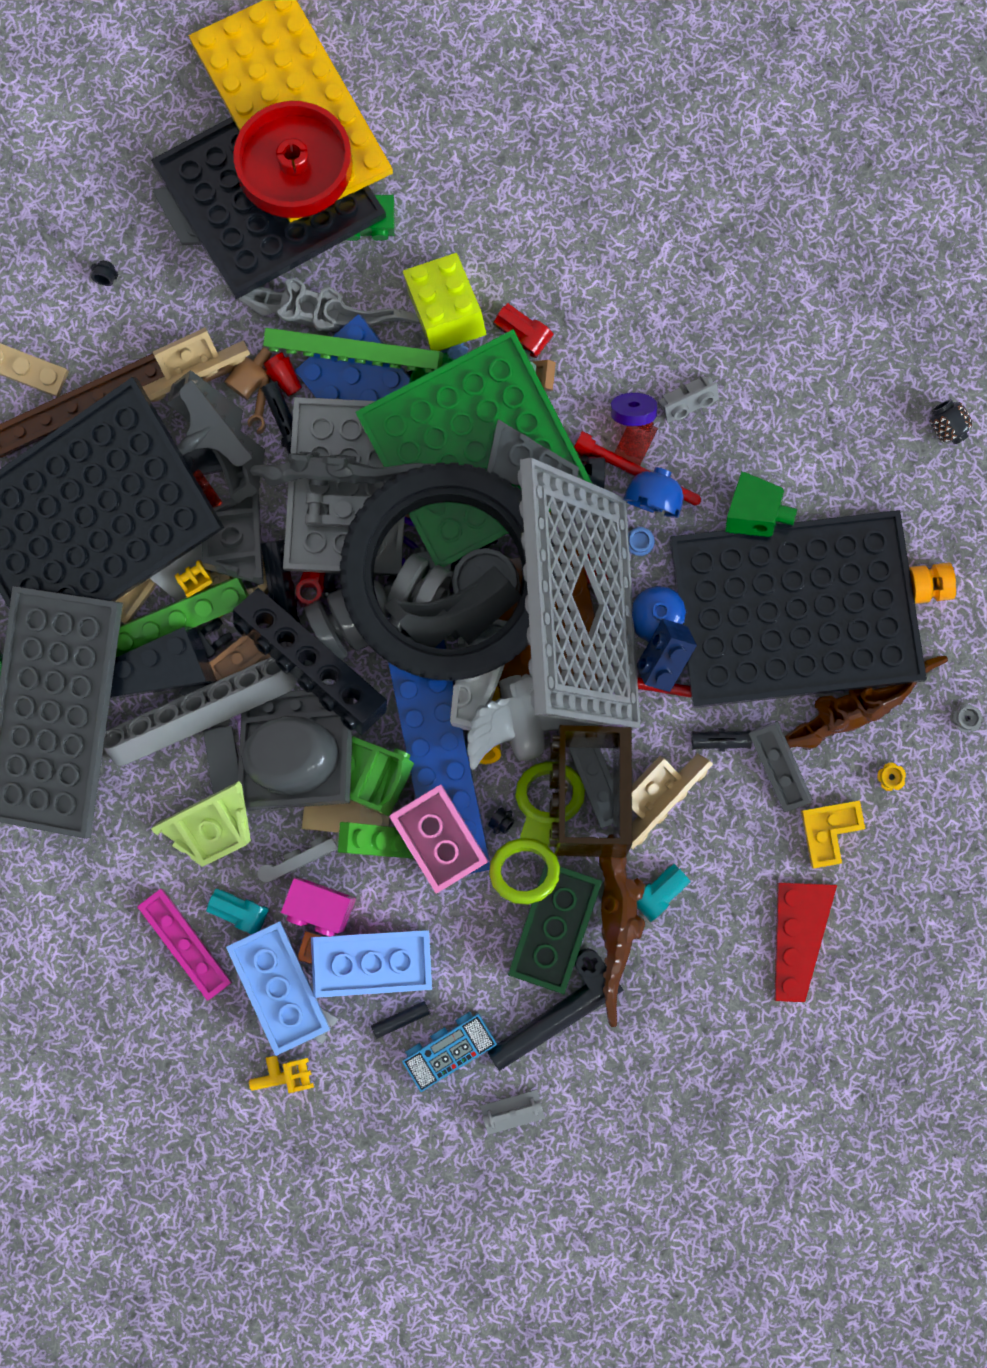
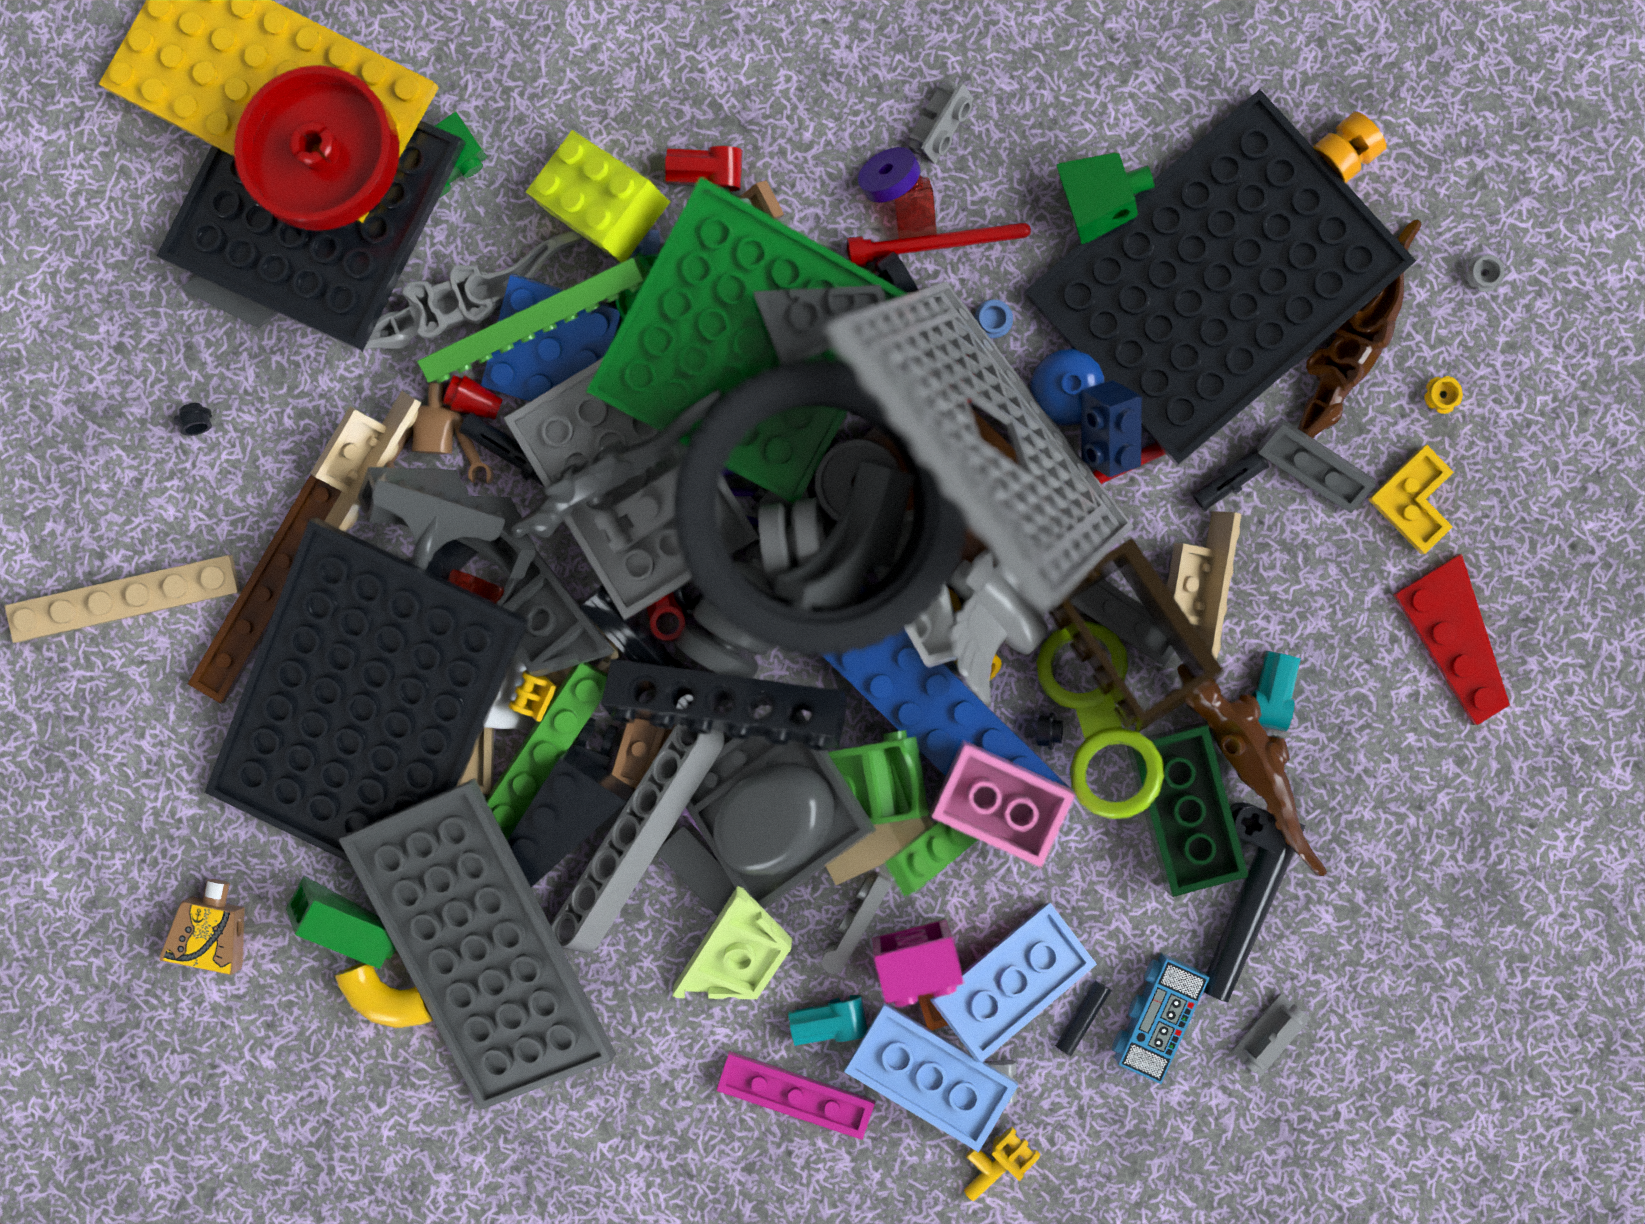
camera: 30 degrees left, 5 degrees up
(655, 492) = (977, 252): blue cylinder -> none

